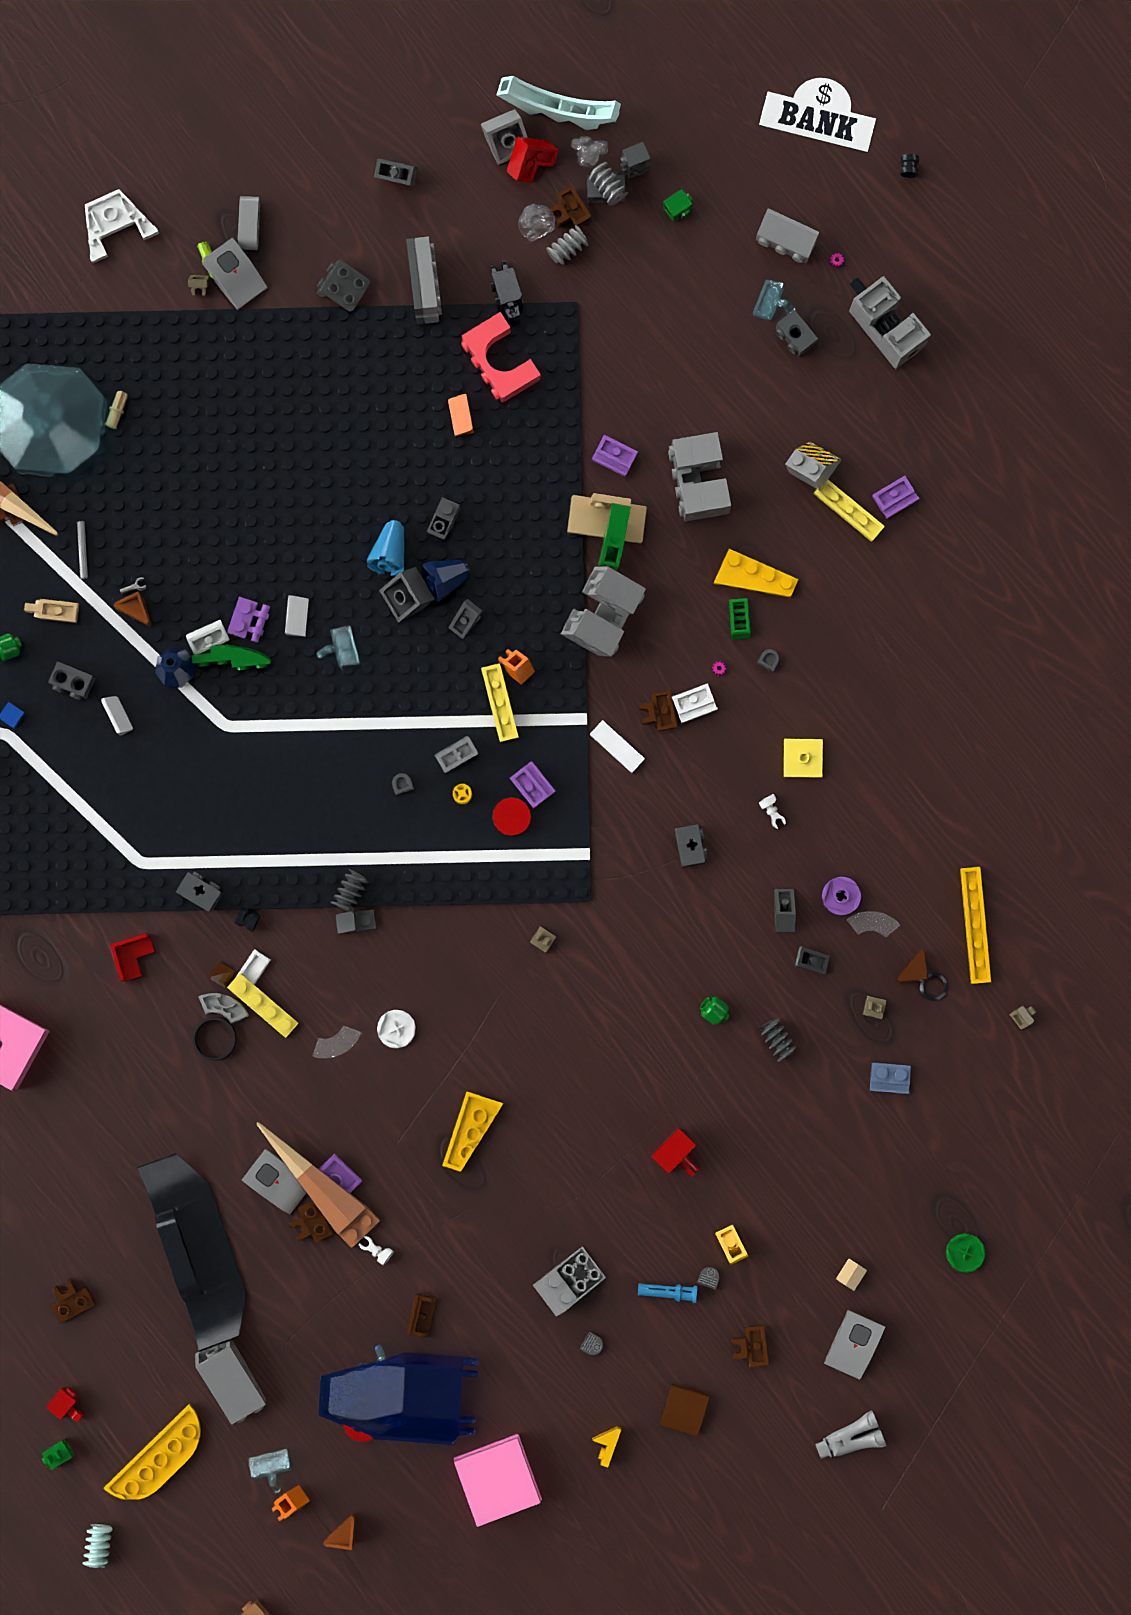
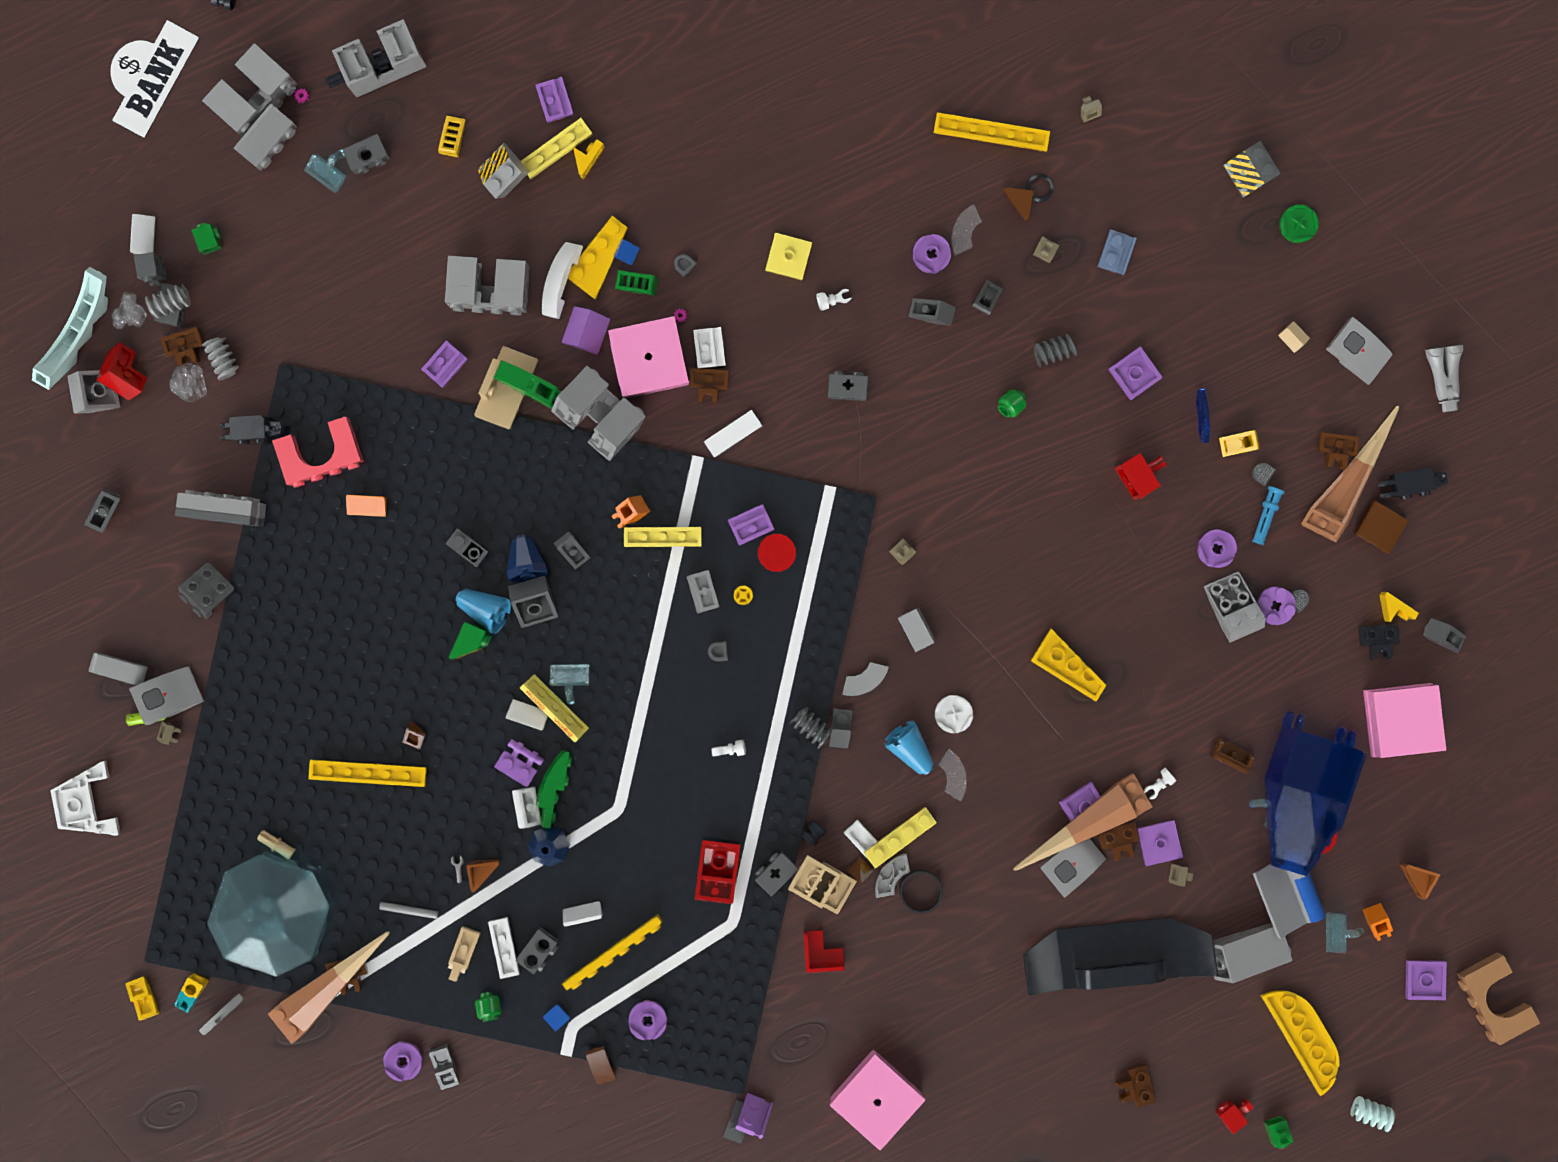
camera: 75 degrees left, 5 degrees up
(17, 804) = (647, 1031): none -> medium lavender plate
(67, 648) = (504, 947): none -> white plate
(92, 760) = (607, 957): none -> yellow plate
(187, 835) = (717, 872): none -> red slope
(198, 939) = (822, 884): none -> tan bracket
(204, 478) = (367, 773): none -> yellow plate
(243, 1567) = (1425, 980): none -> medium lavender plate
(250, 513) = (414, 736): none -> reddish brown slope
(290, 1291) = (1179, 875): none -> dark tan tile
(292, 1406) = (1288, 899): none -> light grey door
(309, 640) = (554, 708): none -> light yellow plate
(313, 826) = (739, 748): none -> white piece
(317, 1264) = (1159, 843): none -> medium lavender plate
(352, 993) = (910, 747): none -> dark azure cone
(355, 542) = (470, 639): none -> green slope
(407, 934) = (865, 681): none -> light grey tile
(470, 971) = (917, 629): none -> light grey hinge
(573, 1436) = (1379, 639): none -> black plate
(591, 1324) = (1287, 606): none -> medium lavender plate
(592, 1501) = (1444, 635): none -> dark grey slope
(633, 1251) = (1226, 554): none -> medium lavender plate
(666, 145) = (142, 234): none -> white slope
(669, 646) = (648, 357): none -> bright pink container
(681, 582) = (586, 330): none -> medium lavender slope
(695, 1359) = (1335, 507): none -> nougat plate
(724, 541) = (557, 277): none -> white slope
(737, 1430) = (1413, 482): none -> black hinge
(752, 1201) = (1203, 416): none -> clear blue tile
(766, 601) = (626, 252): none -> blue tile
(775, 1125) = (1135, 373): none -> medium lavender plate
(830, 402) = (443, 141): none -> yellow slope
(842, 227) = (264, 73): none -> light grey piece
(842, 541) = (585, 162): none -> yellow slope
(1006, 1191) = (1251, 169): none -> slope

